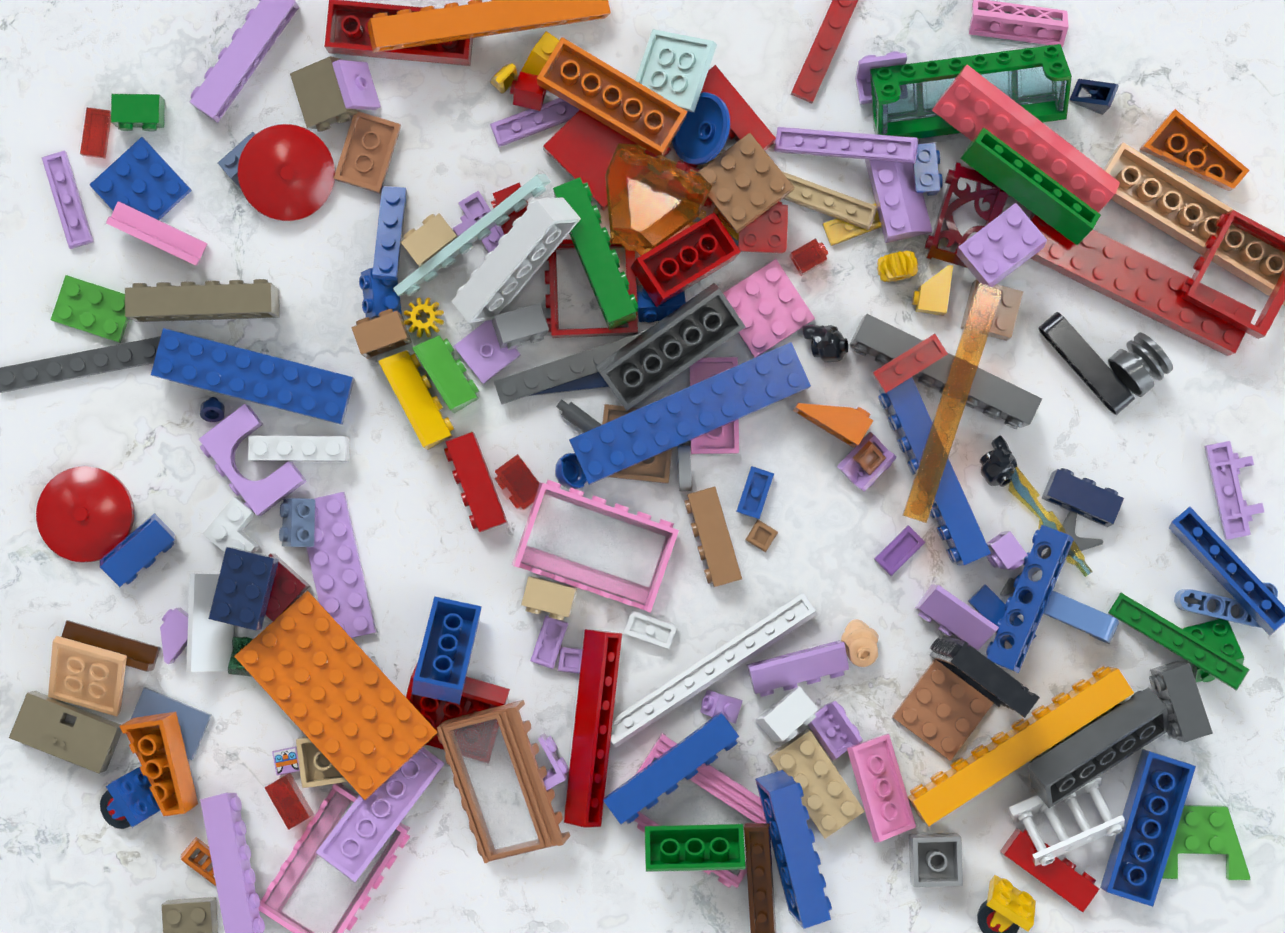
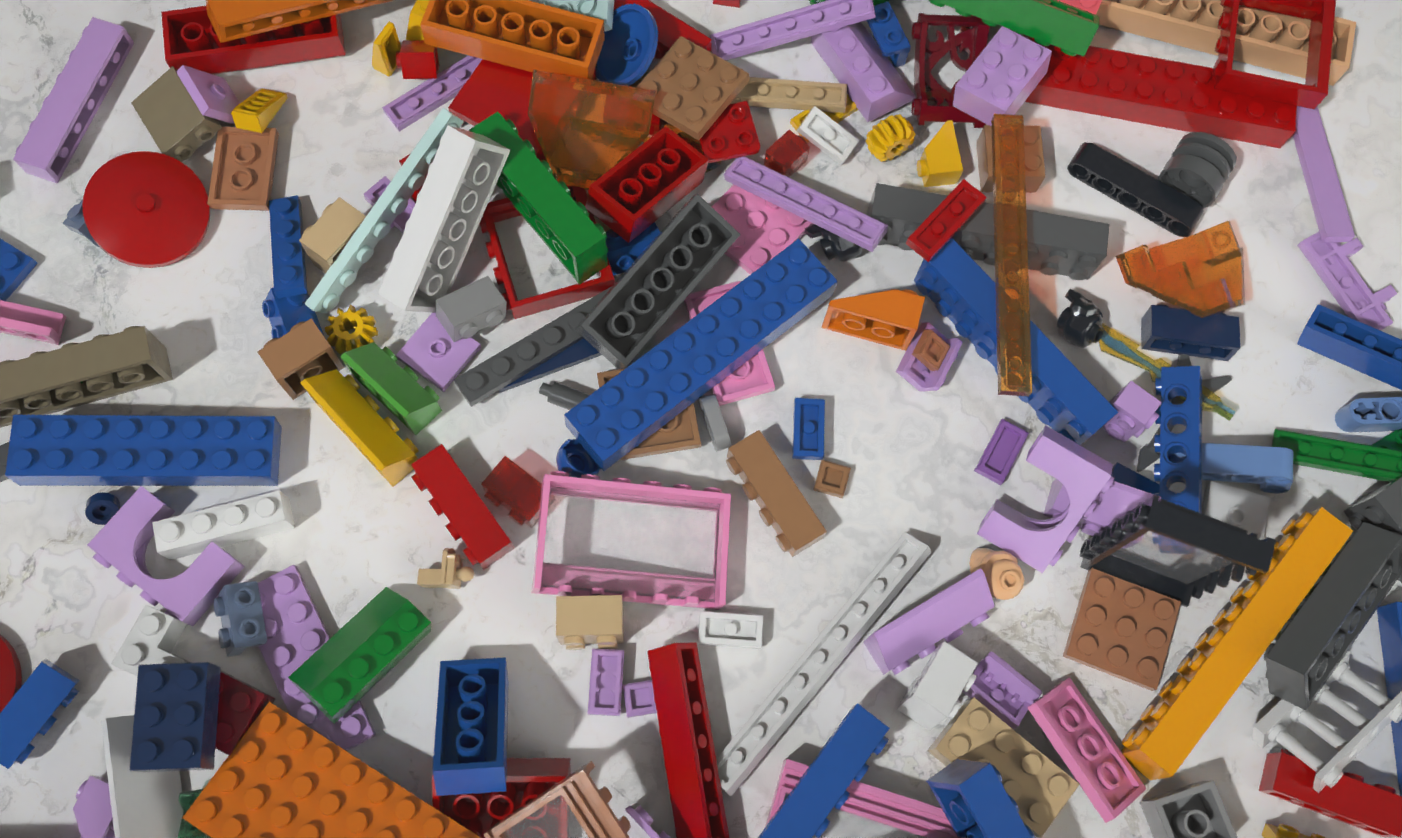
camera: 20 degrees left, 15 degrees down
(378, 572) = (361, 653): none -> green slope
(381, 115) = (258, 110): none -> yellow slope
(456, 531) = (449, 575): none -> tan piece
(715, 703) = (841, 698): lavender bracket -> none
(807, 309) = (806, 203): none -> lavender tile
(847, 249) = (827, 135): none -> white plate
(899, 628) = (1040, 540): none -> lavender arch
(1060, 651) = (1237, 507): none -> white plate
(1099, 450) = (1193, 272): none -> clear orange panel
(1245, 394) = (1321, 177): none -> lavender tile

